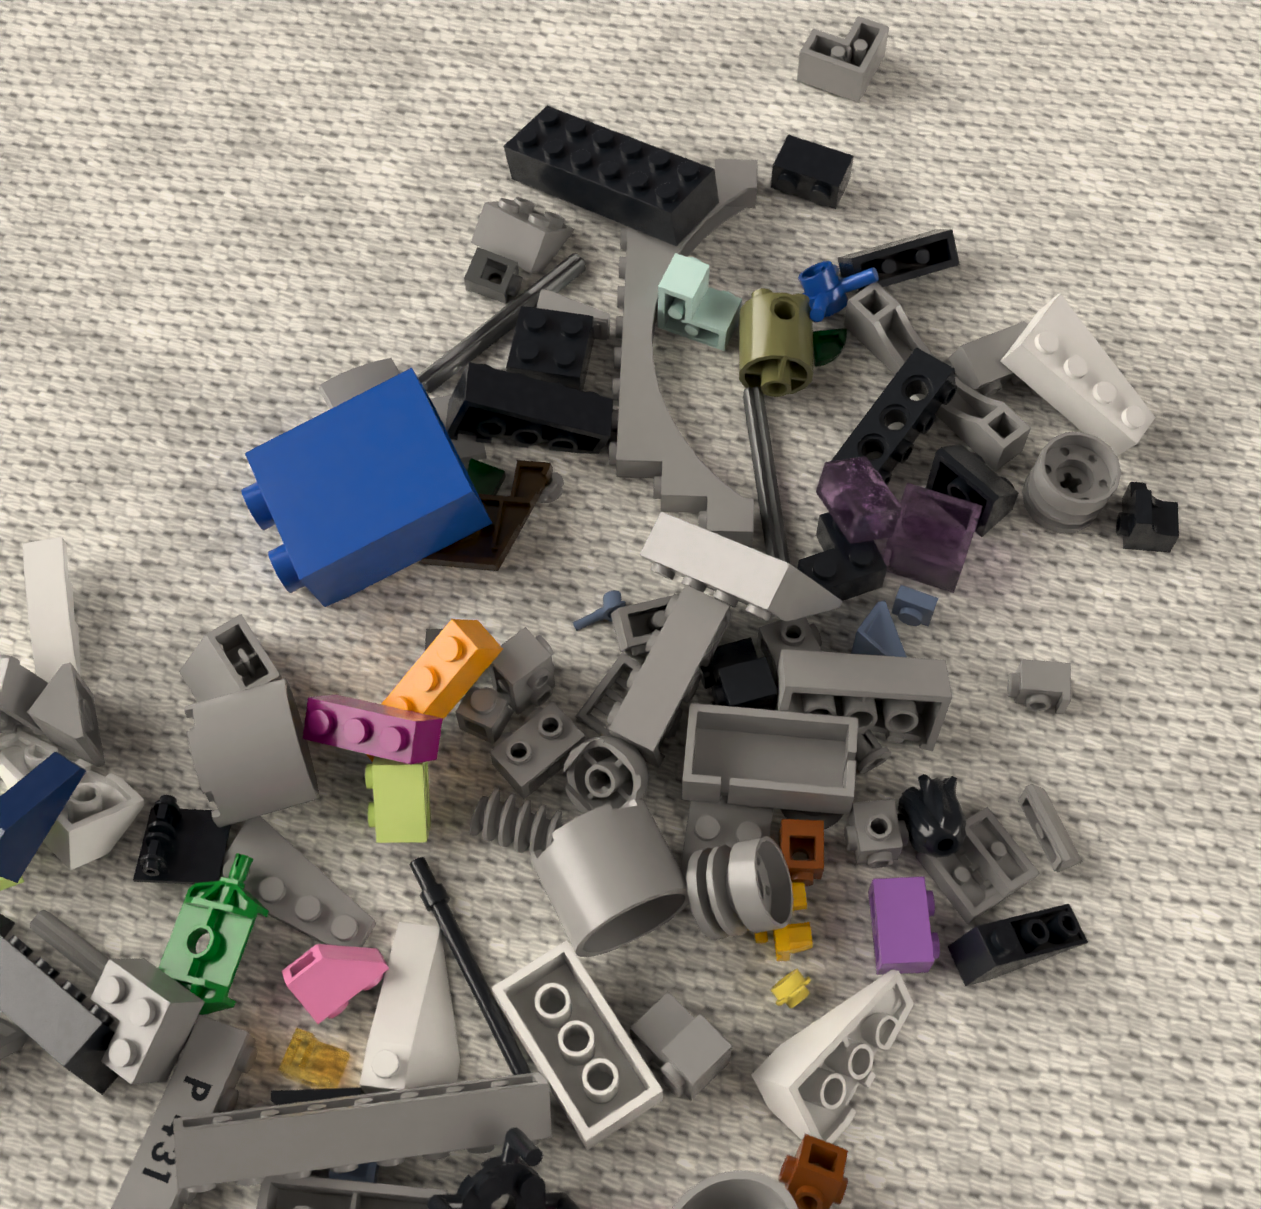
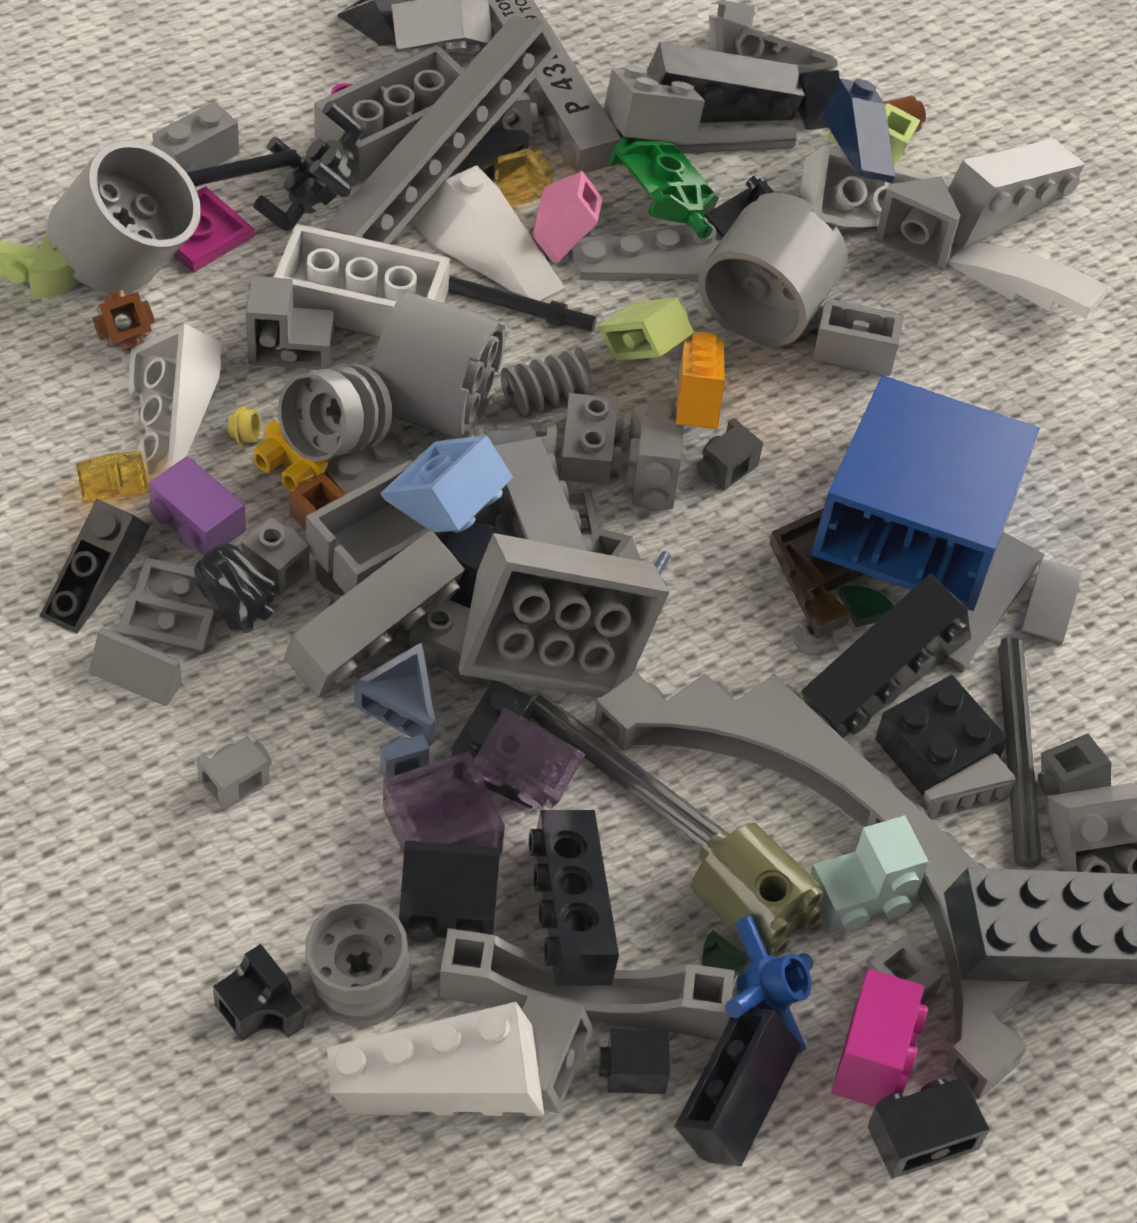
camera: 130 degrees right, 10 degrees down
(372, 728) = (703, 312): brick -> none
(732, 725) = (450, 483): none -> light blue slope
(736, 257) = (907, 963): none -> light grey brick
(797, 218) = (880, 1039): none -> dark pink brick
(941, 321) = (636, 1061): none -> black brick
(941, 1021) = (112, 476): none -> clear yellow panel

